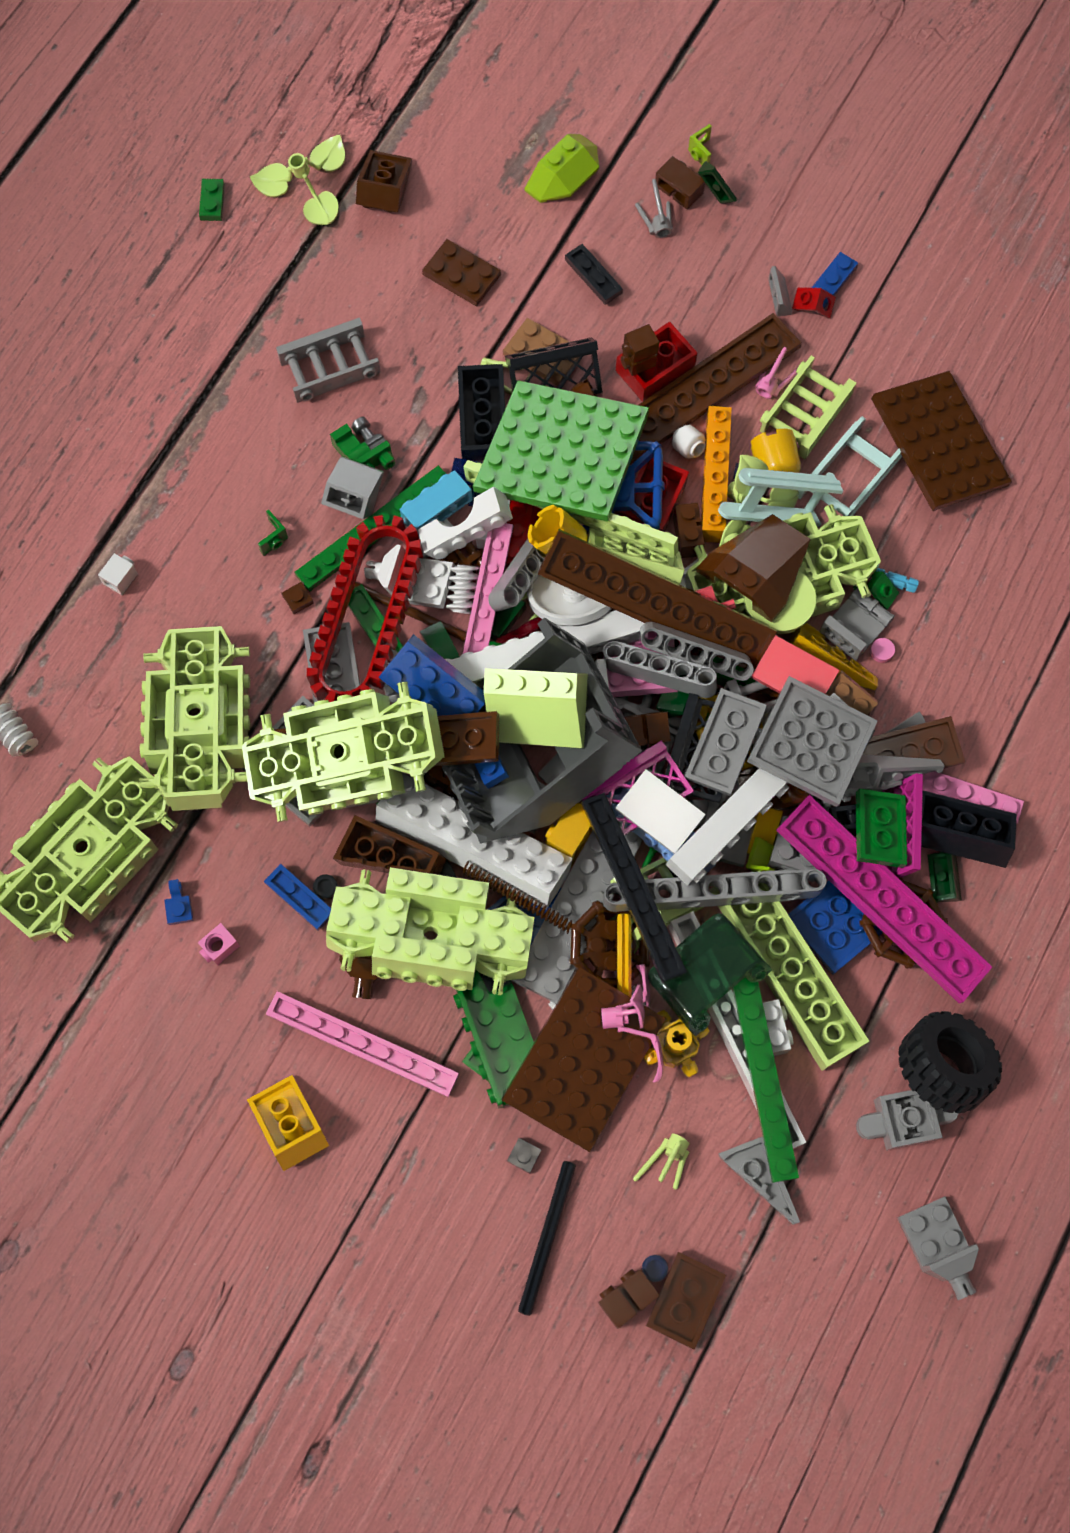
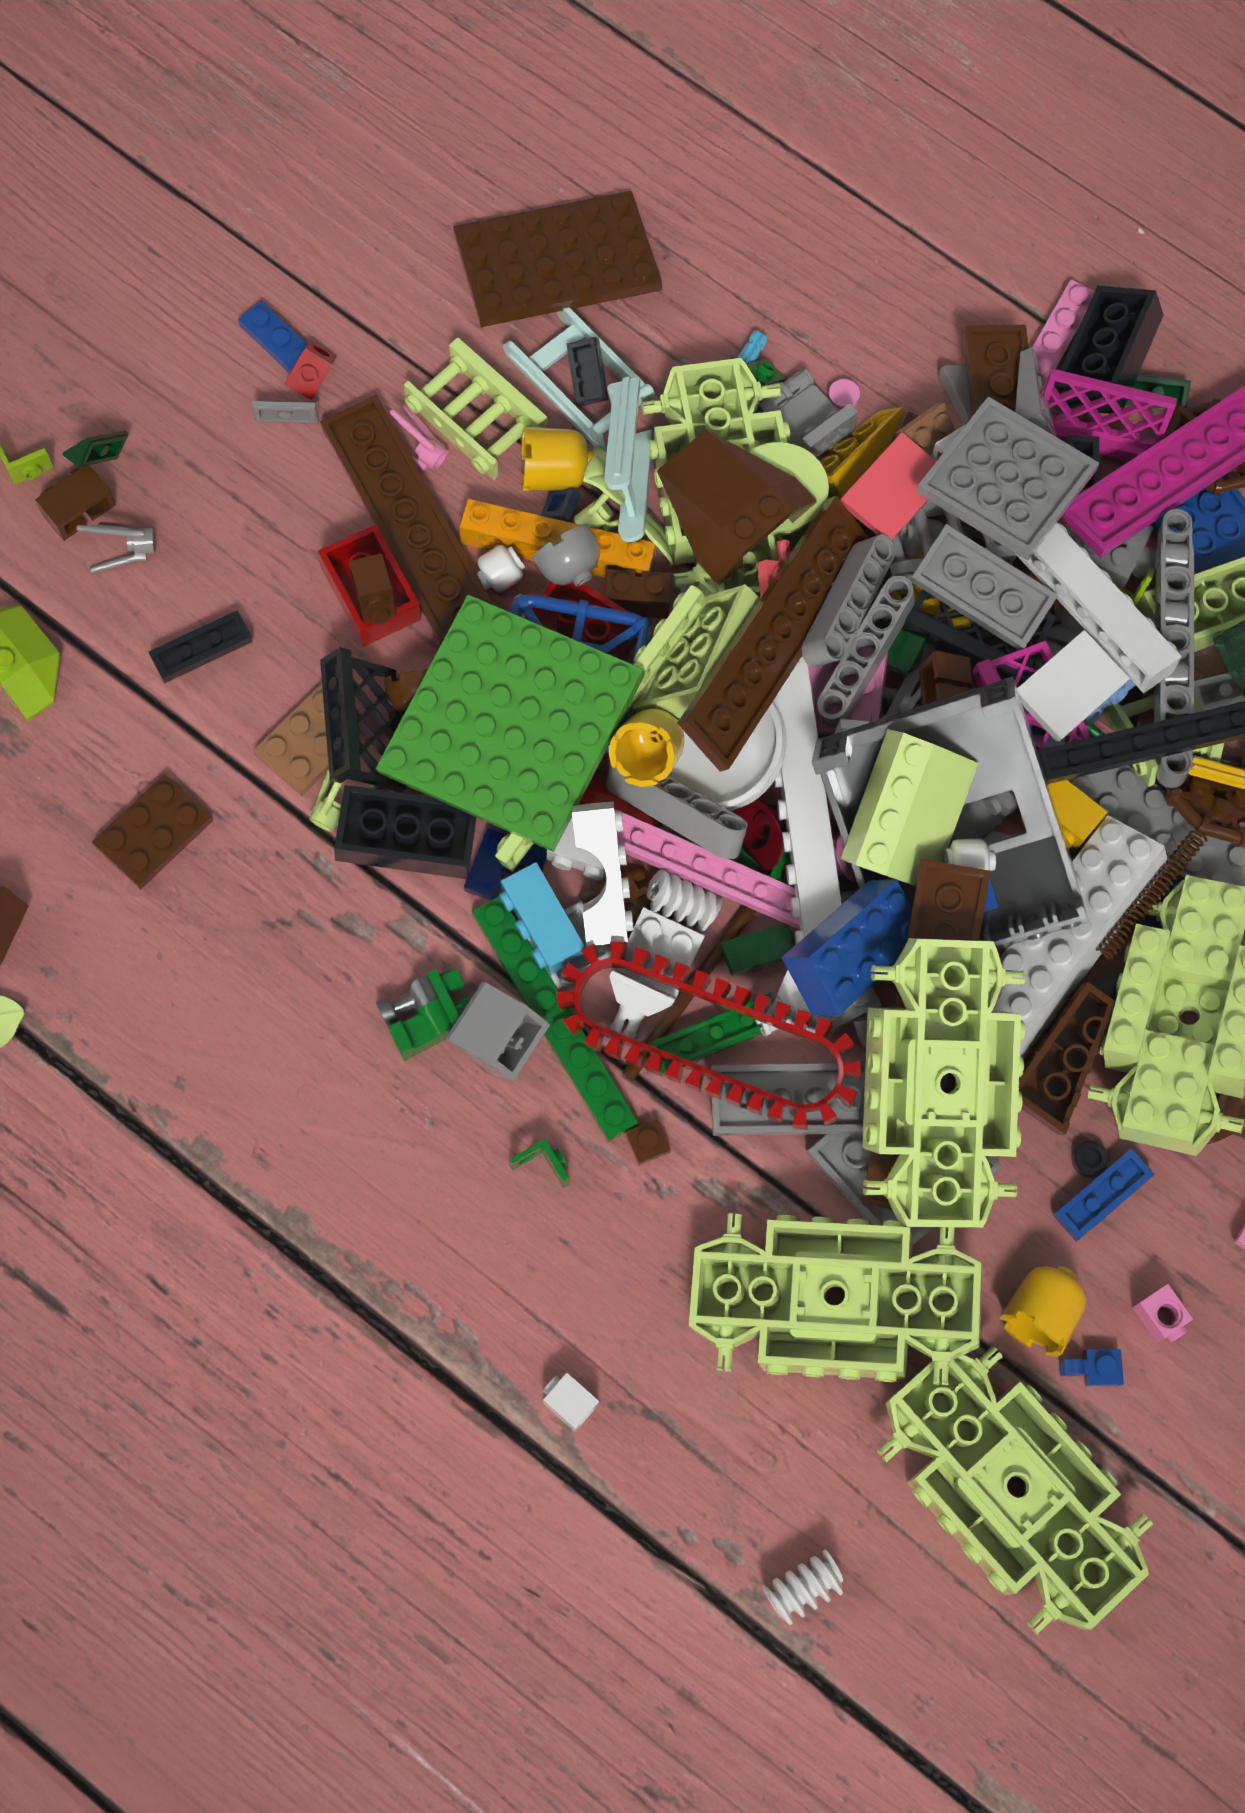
camera: 85 degrees left, 0 degrees up
(210, 861) = (1045, 1309): none -> yellow cylinder
(322, 341) = (240, 1065): light grey fence -> none
(512, 756) = (970, 853): none -> white head
(693, 469) = (570, 557): none -> light grey cylinder
(856, 471) = (587, 371): none -> black plate
(881, 828) = (1113, 434): green plate -> none

